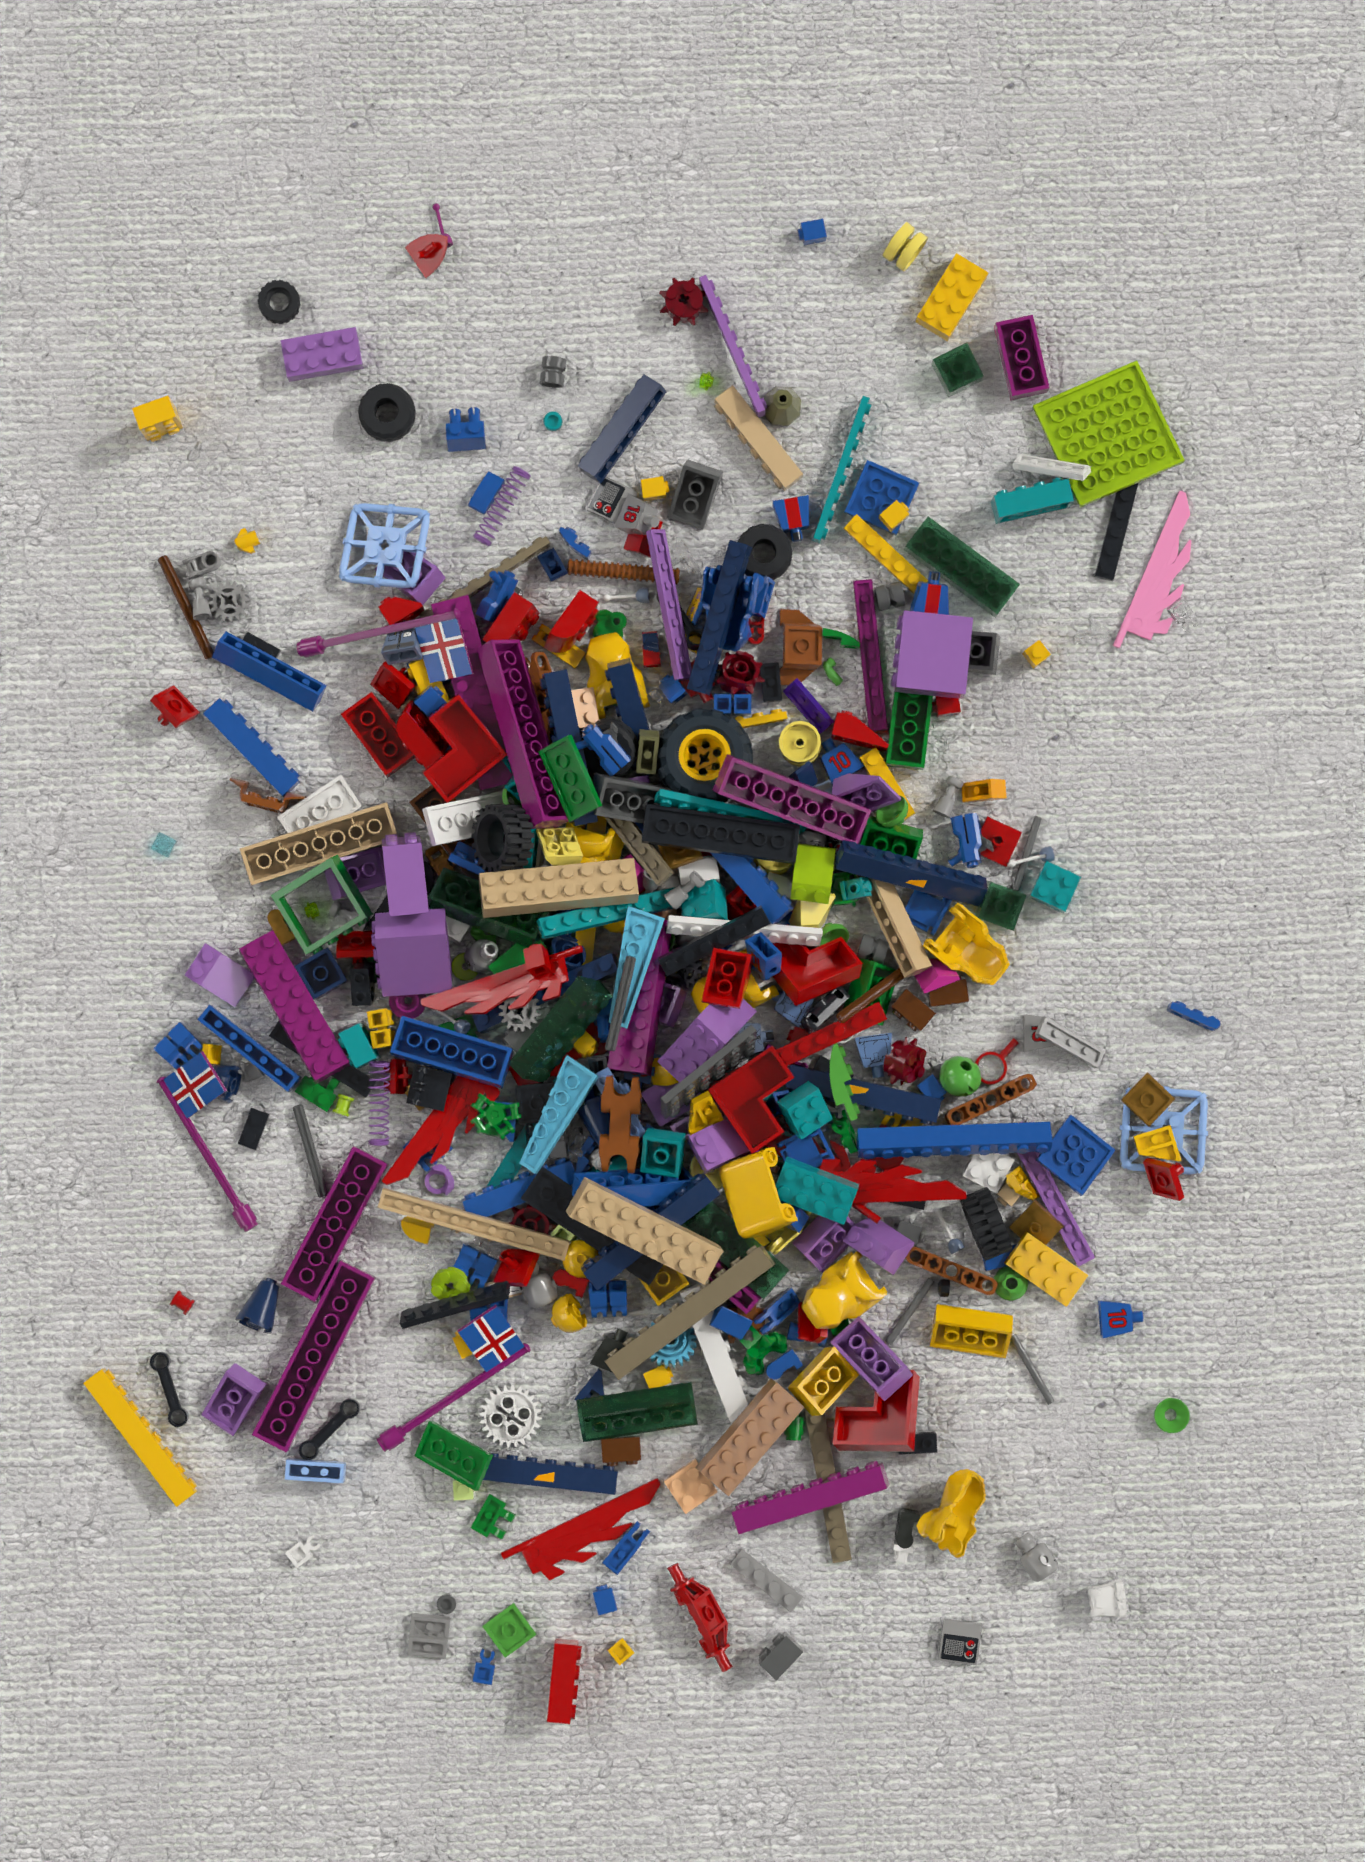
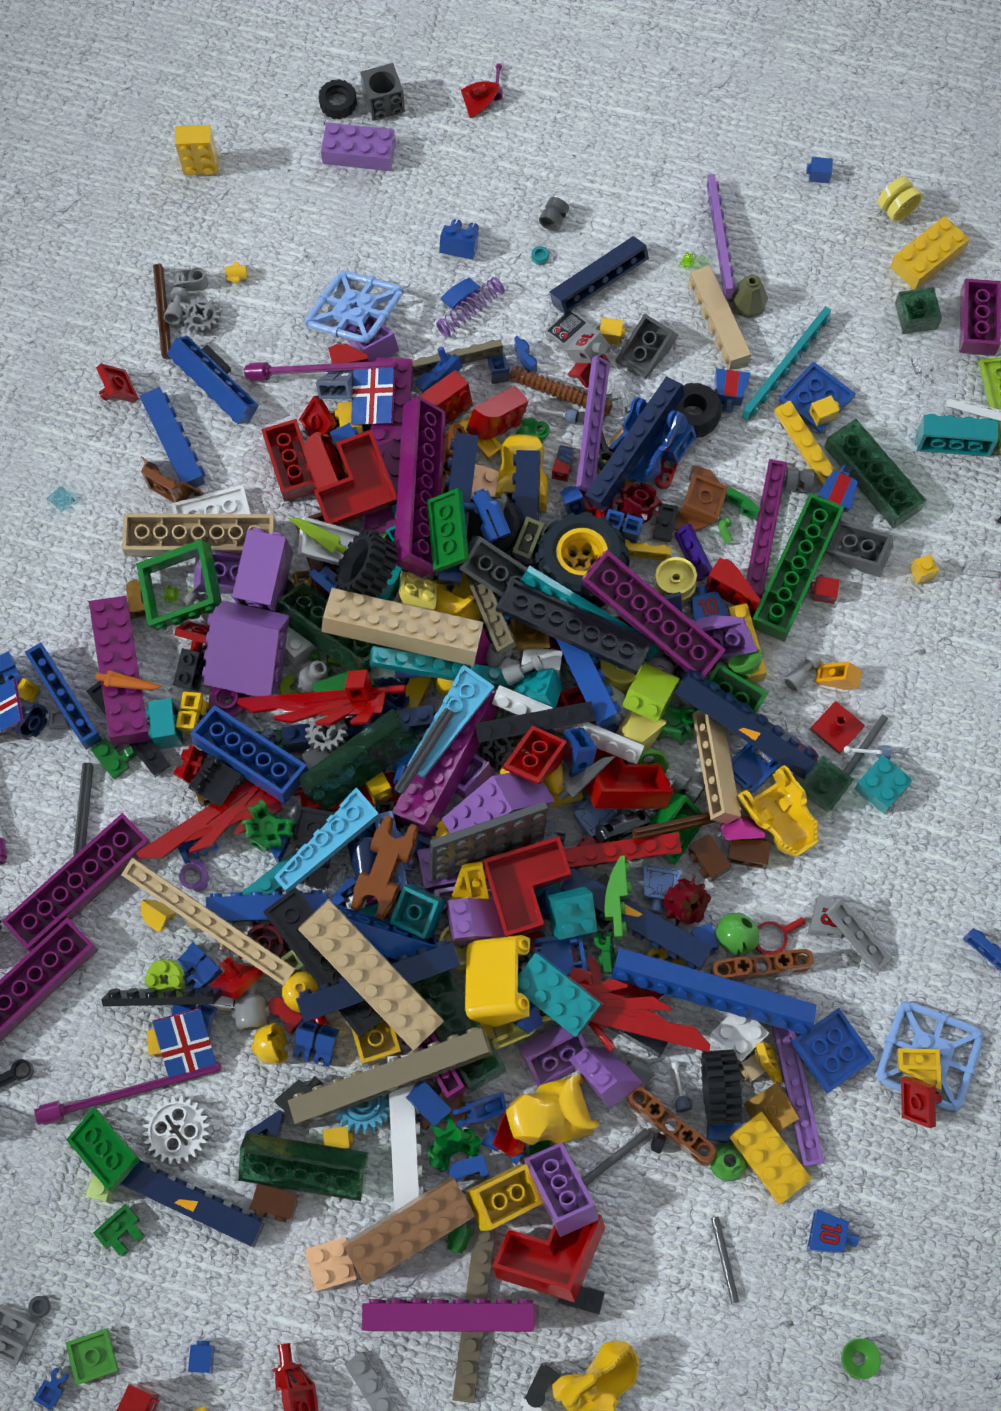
camera: 25 degrees right, 15 degrees down
(220, 975) = (63, 623): medium lavender slope -> none
(253, 1129) = (38, 773): black plate -> none
(302, 1022) = (114, 679): none -> orange bar
(321, 973) = (156, 649): dark blue brick -> none
(322, 267) = (386, 81): none -> dark grey brick
(343, 1105) = (130, 776): lime bush -> none
(374, 399) = (396, 192): black tyre -> none
(380, 1142) = (178, 746): medium lavender piece -> none
(453, 821) = (321, 536): none -> lime bar
(575, 1534) = (196, 1277): red animal -> none
(624, 1550) = (241, 1310): blue hinge -> none
(678, 311) = (688, 191): dark red brick -> none
(772, 988) = (581, 780): none -> dark grey bar
(856, 888) = (688, 722): teal brick -> none
(932, 654) = (825, 530): medium lavender brick -> none
(971, 841) = (813, 715): blue piece -> none
(971, 1331) = (673, 1197): yellow slope -> none
(1147, 1099) = (922, 1017): pearl gold plate -> none

